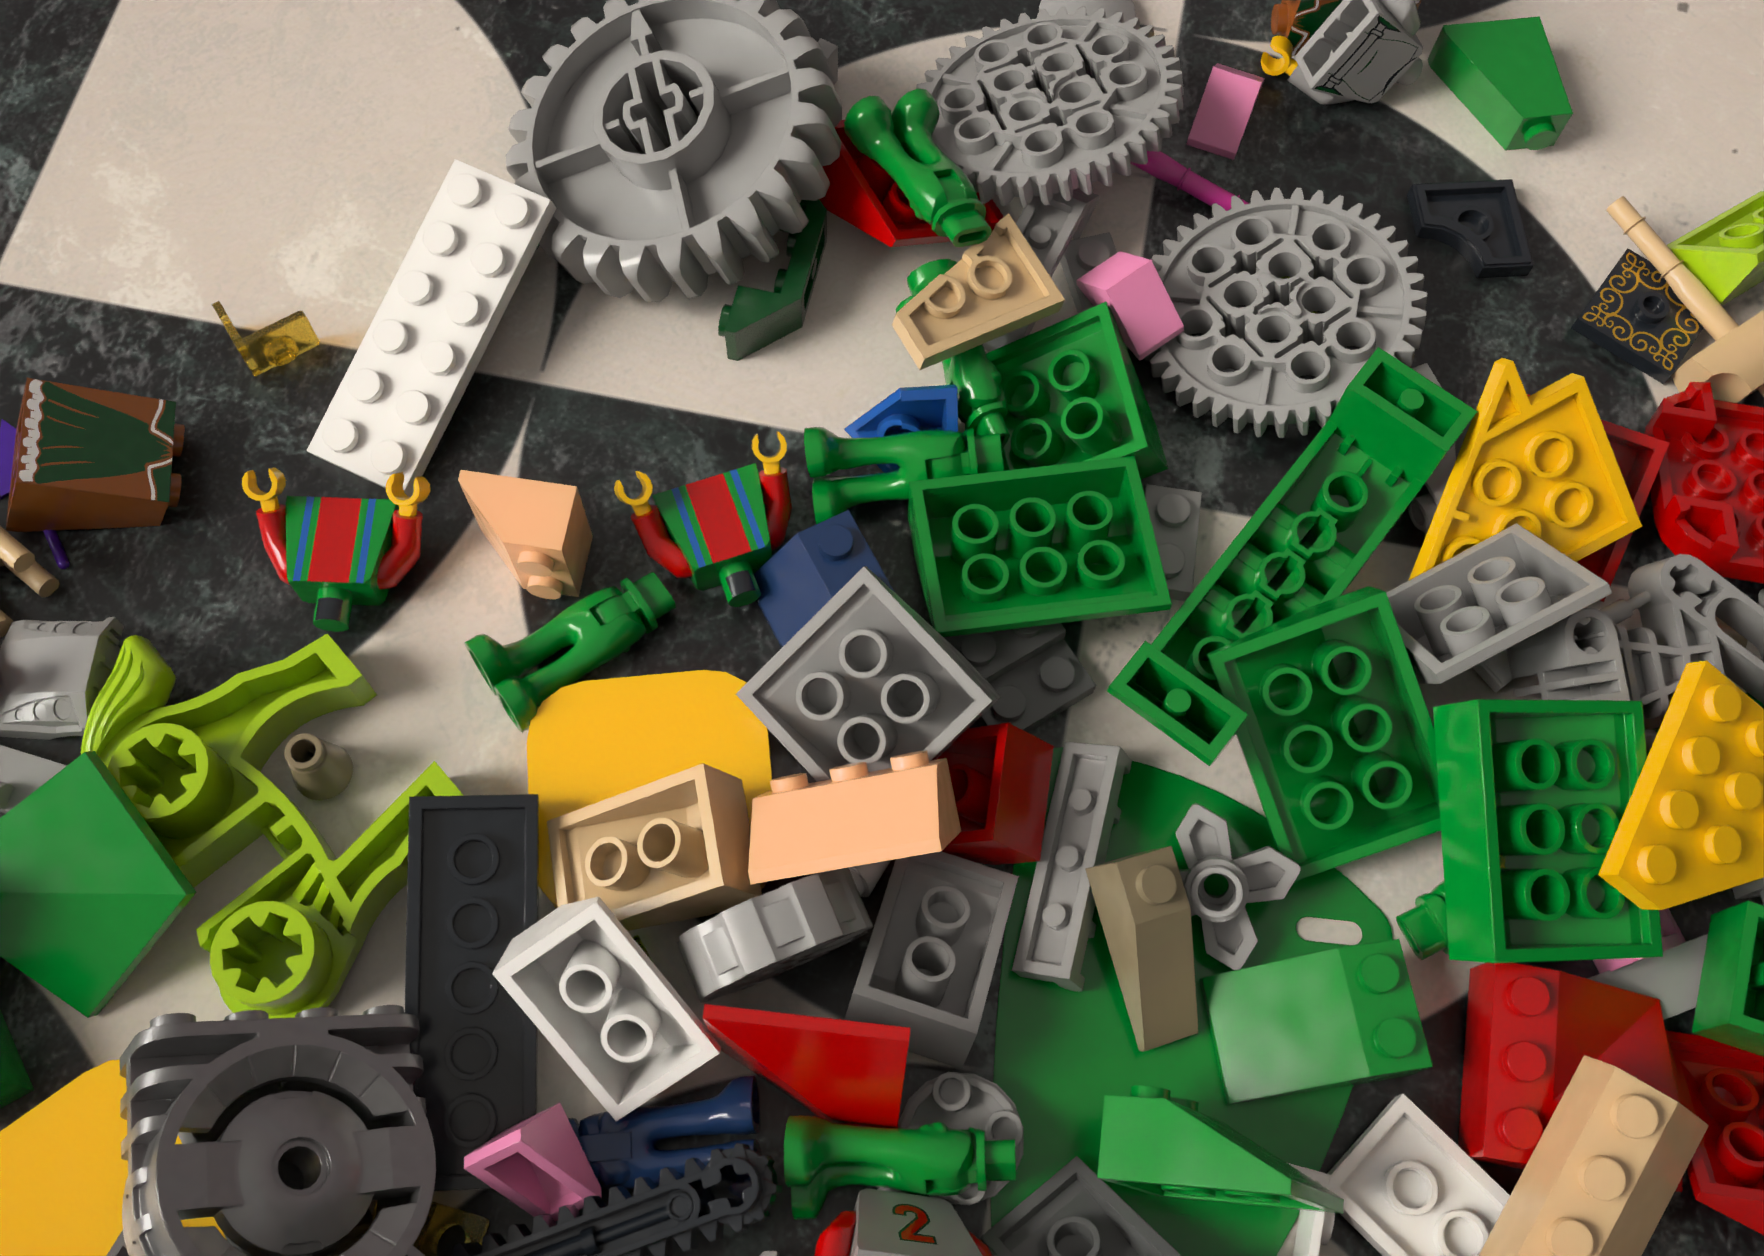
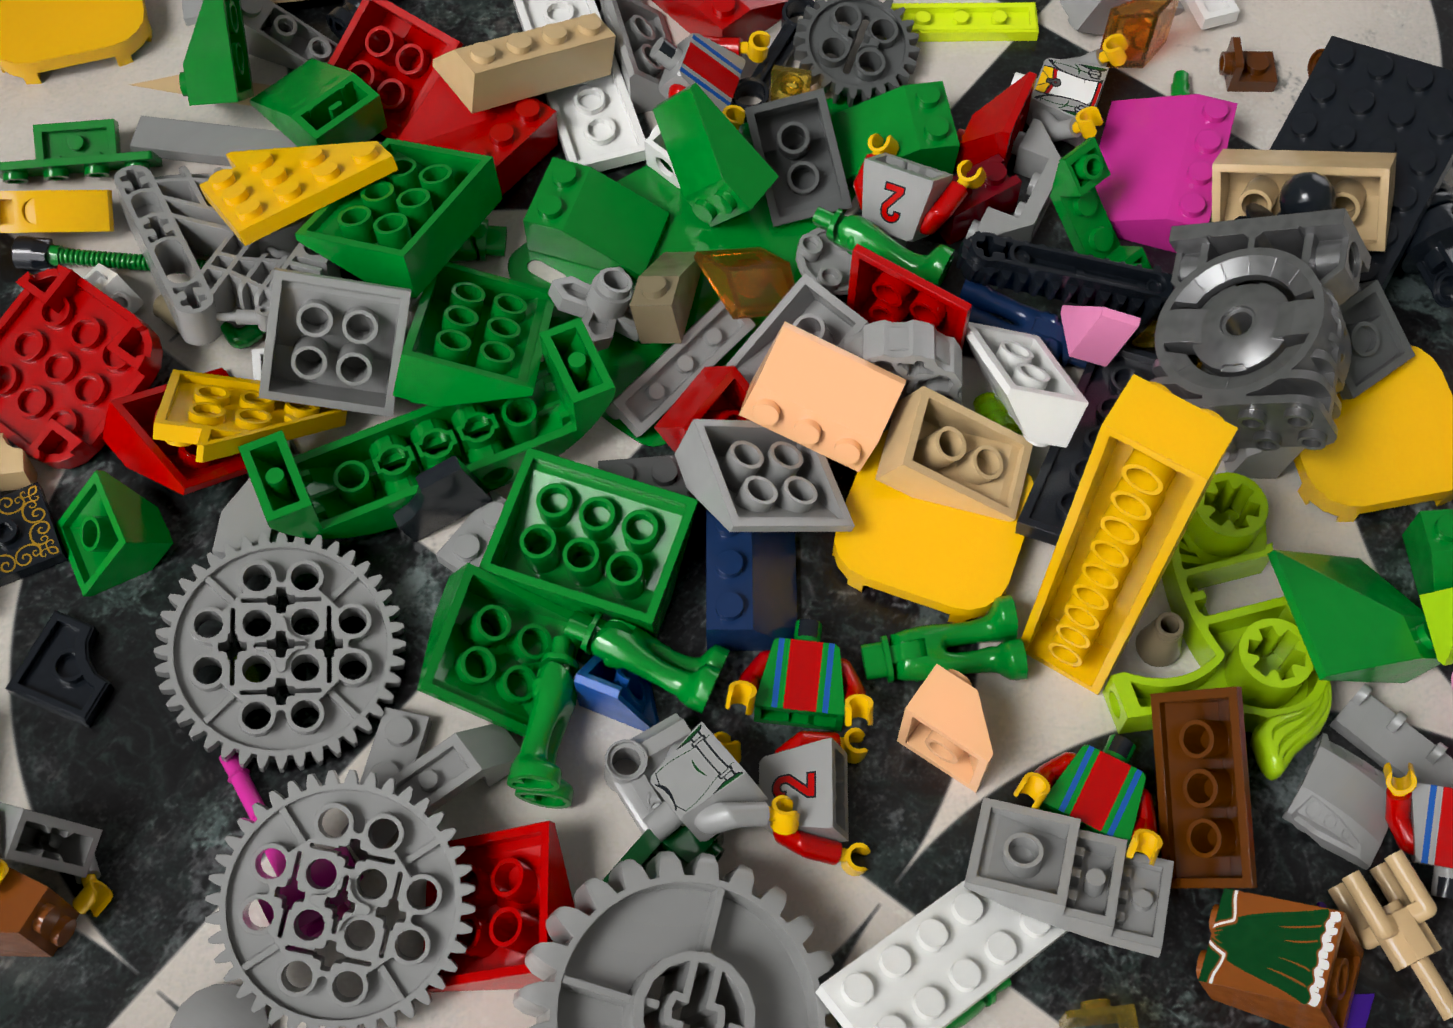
camera: 150 degrees left, 5 degrees down
(216, 592) = (1204, 788): none -> reddish brown slope
(326, 577) = (1123, 528): none -> yellow brick
(343, 432) = (1069, 876): none -> light grey slope
(656, 408) = (814, 775): none -> torso
(756, 340) = (712, 791): none -> light grey torso
(833, 352) = (648, 752): none -> light grey piece
(926, 175) = (493, 831): green piece -> none
(979, 299) = (512, 728): tan wing -> none
(1056, 1024) = (747, 279): none -> clear orange slope
(1136, 300) = (392, 708): bright pink slope -> none
(1224, 111) = (168, 872): bright pink slope -> none
(1226, 526) = (442, 497): none -> black tile
(1545, 349) = (111, 534): none -> green slope

